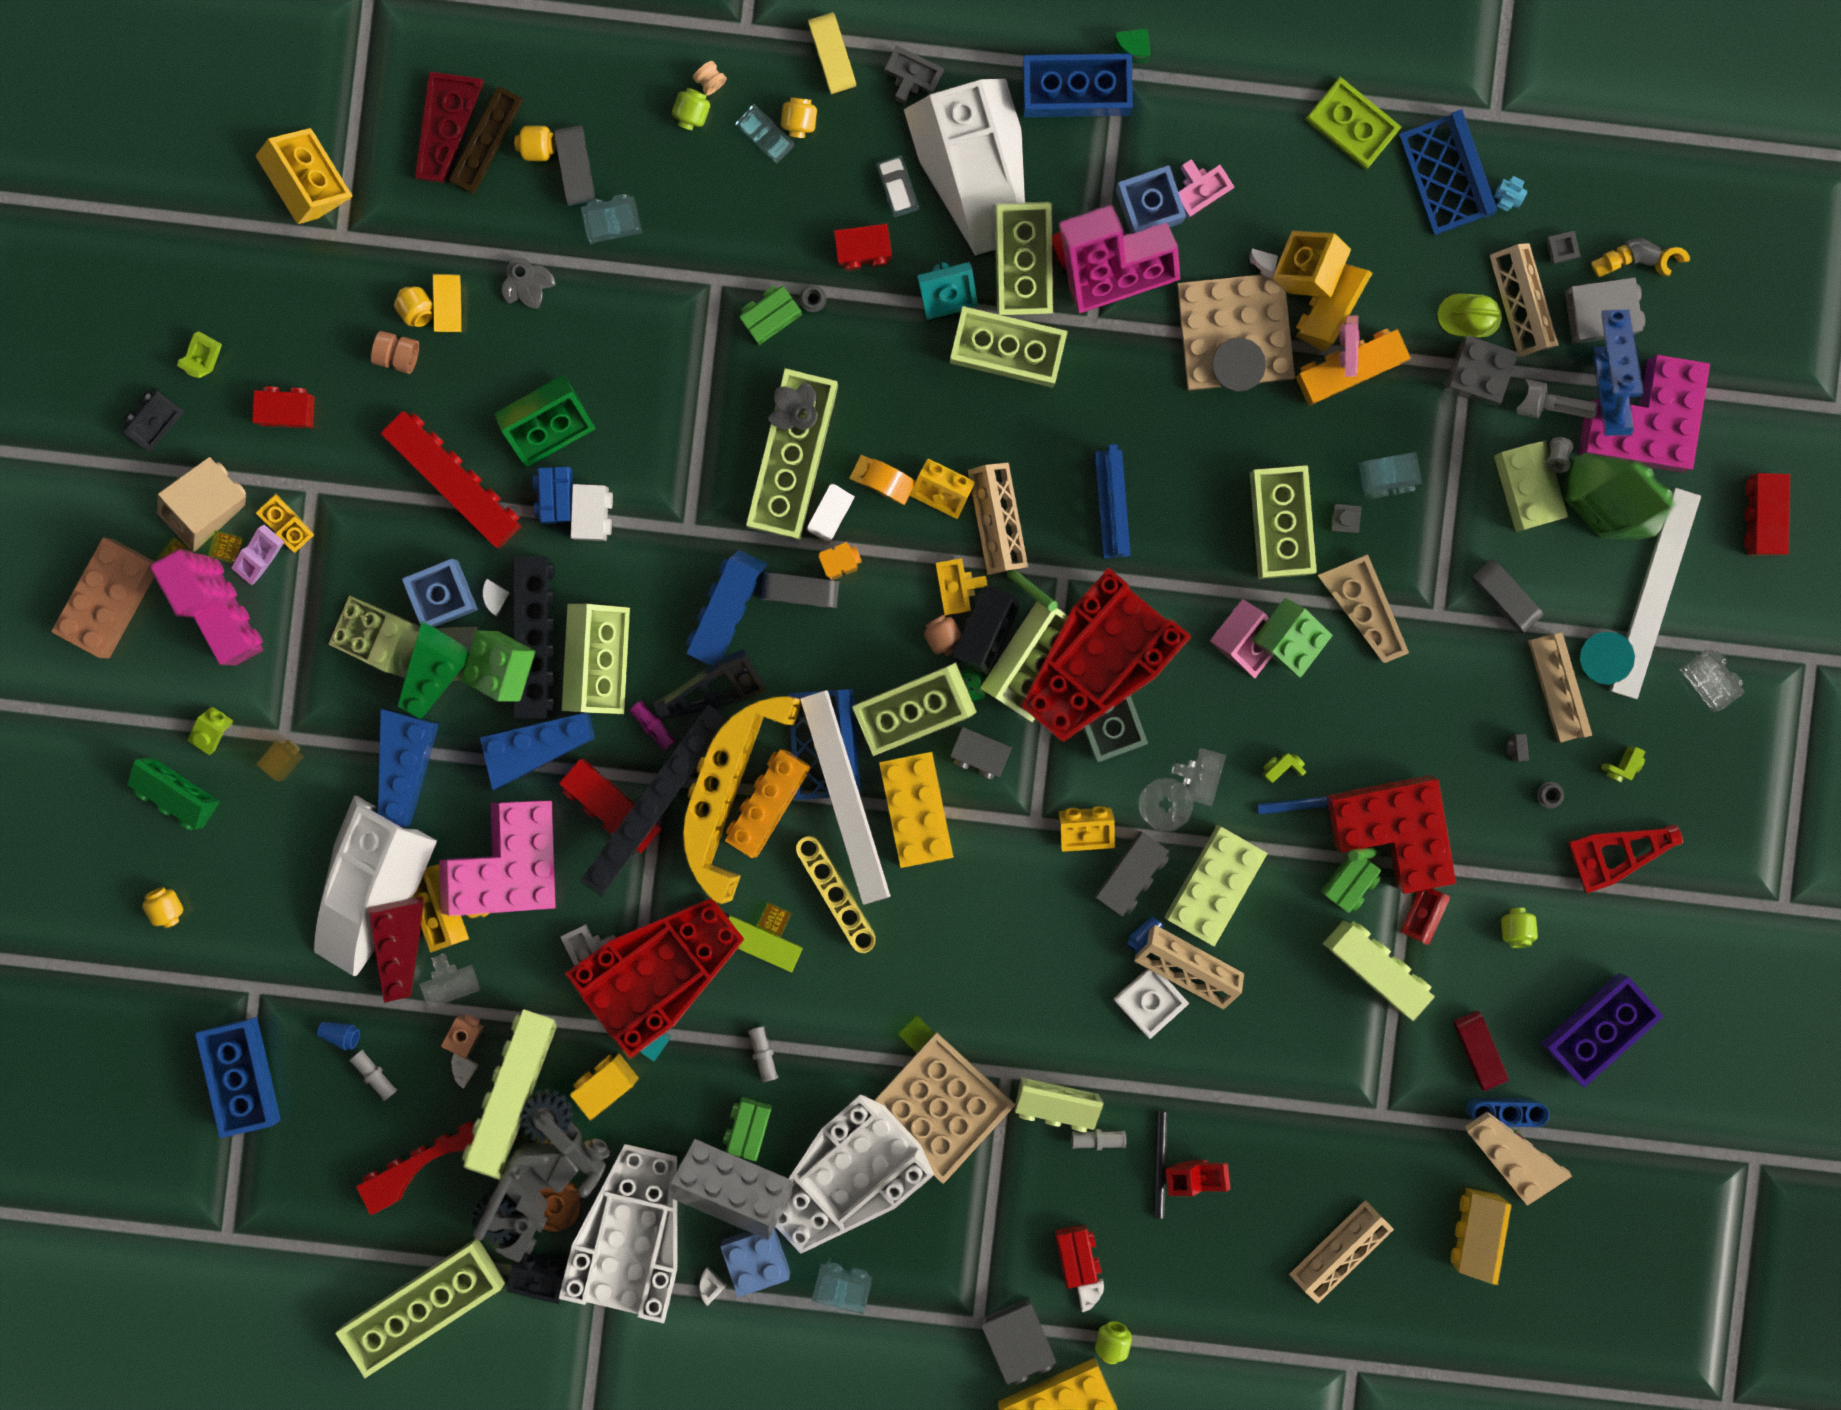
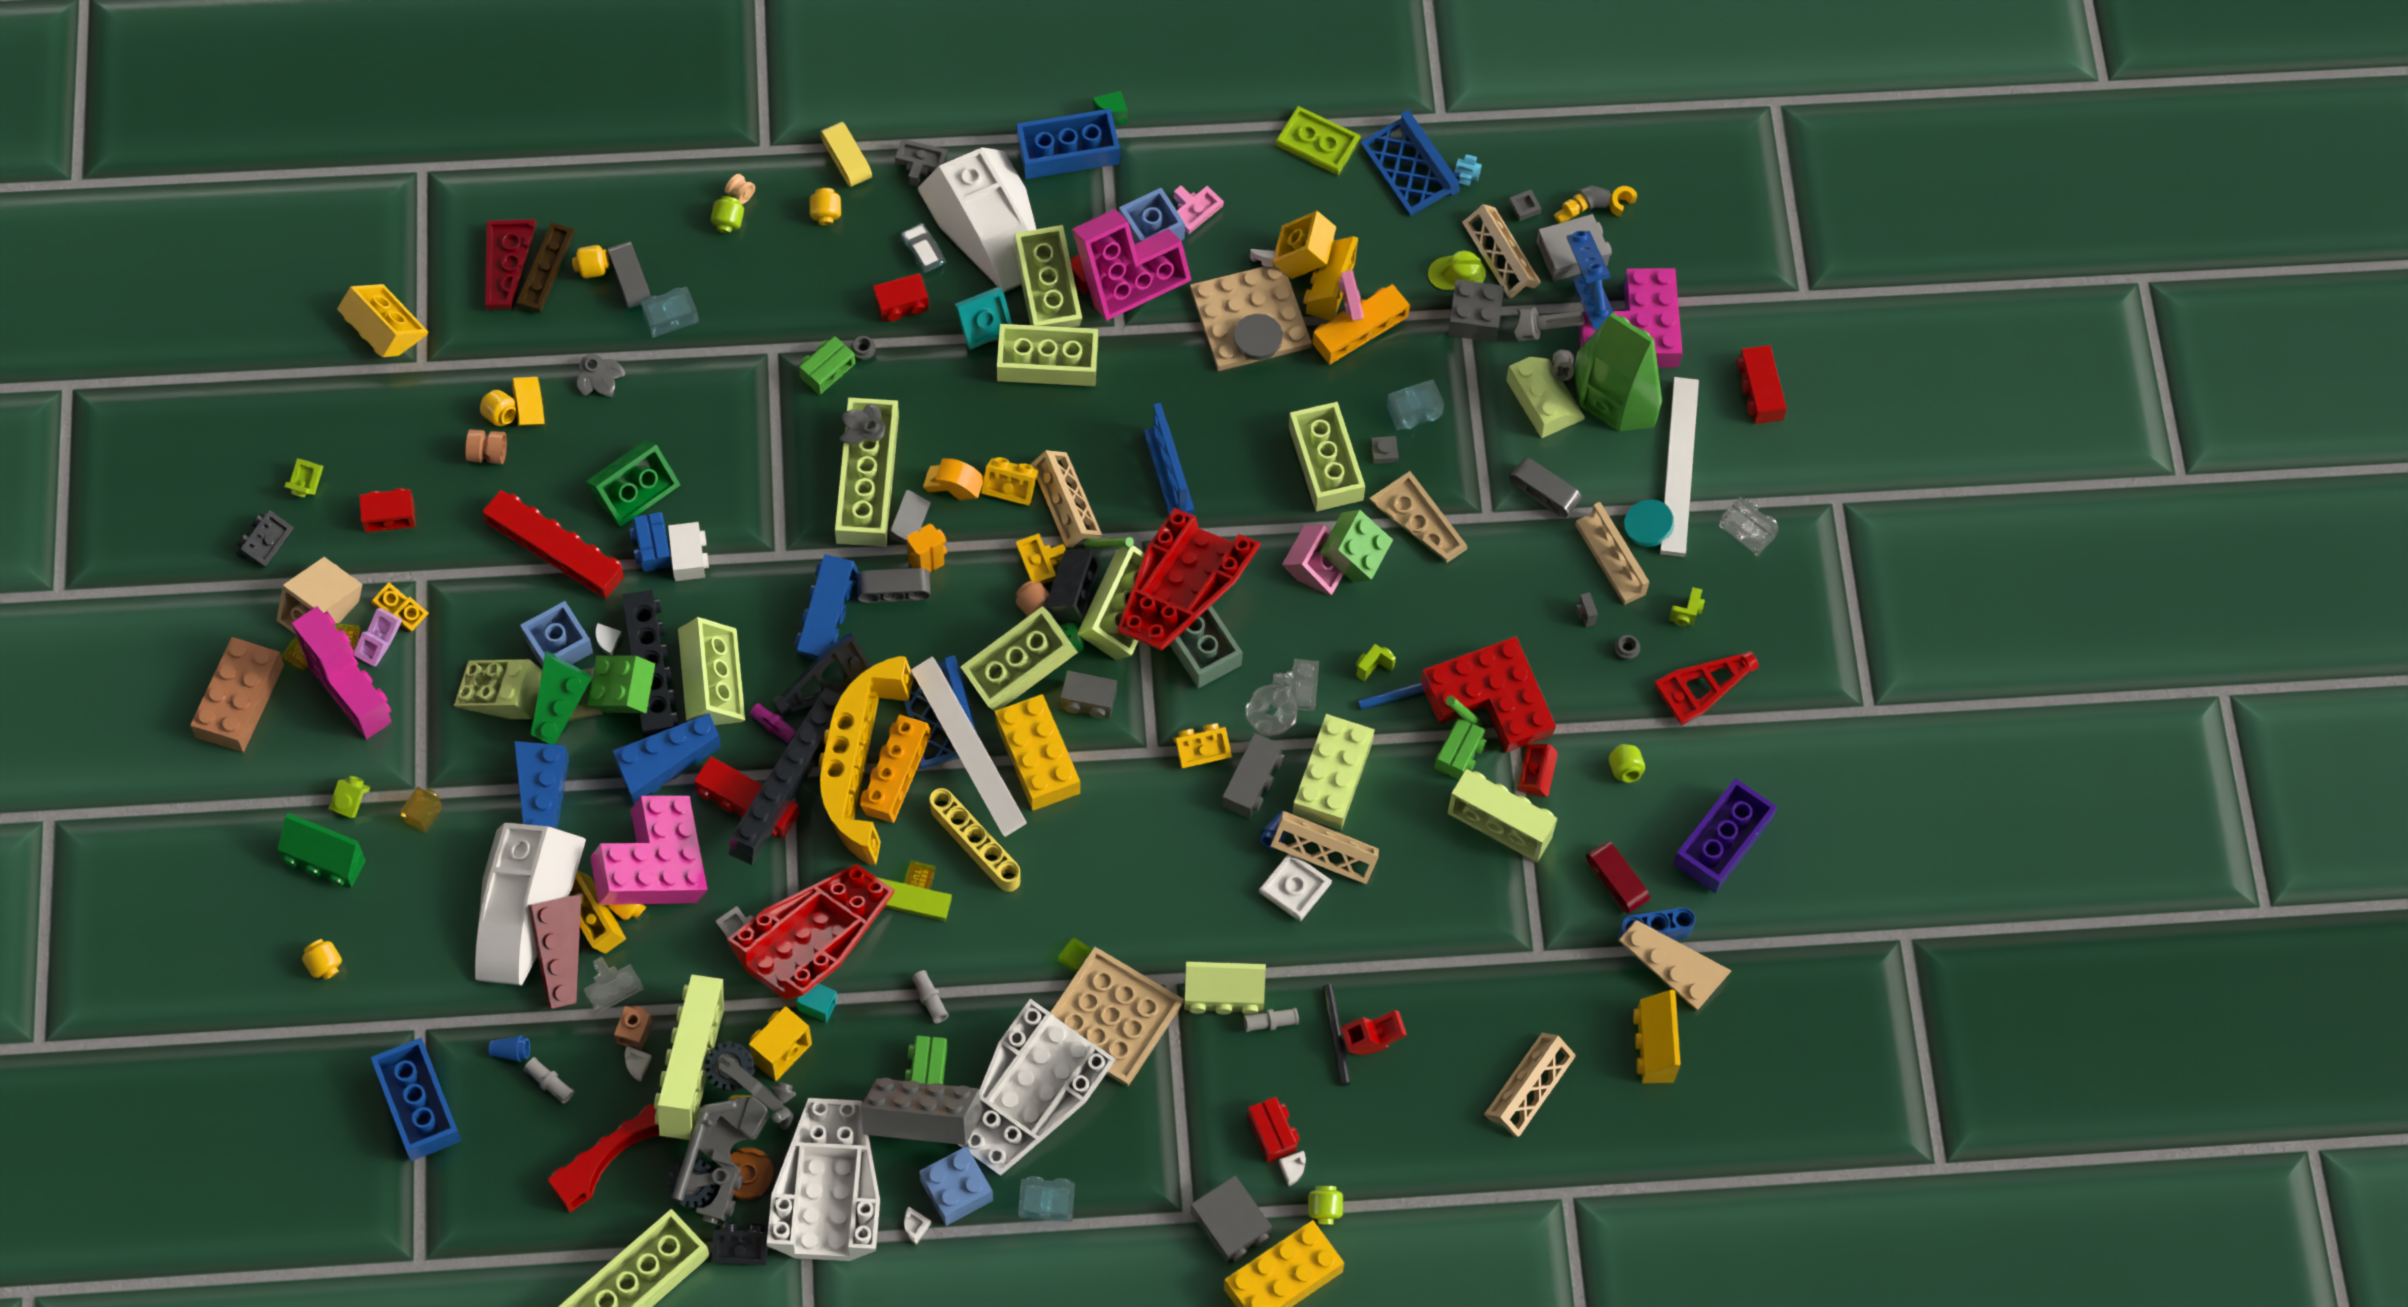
camera: 15 degrees left, 25 degrees down
(765, 134) = (795, 226): clear light blue slope -> none

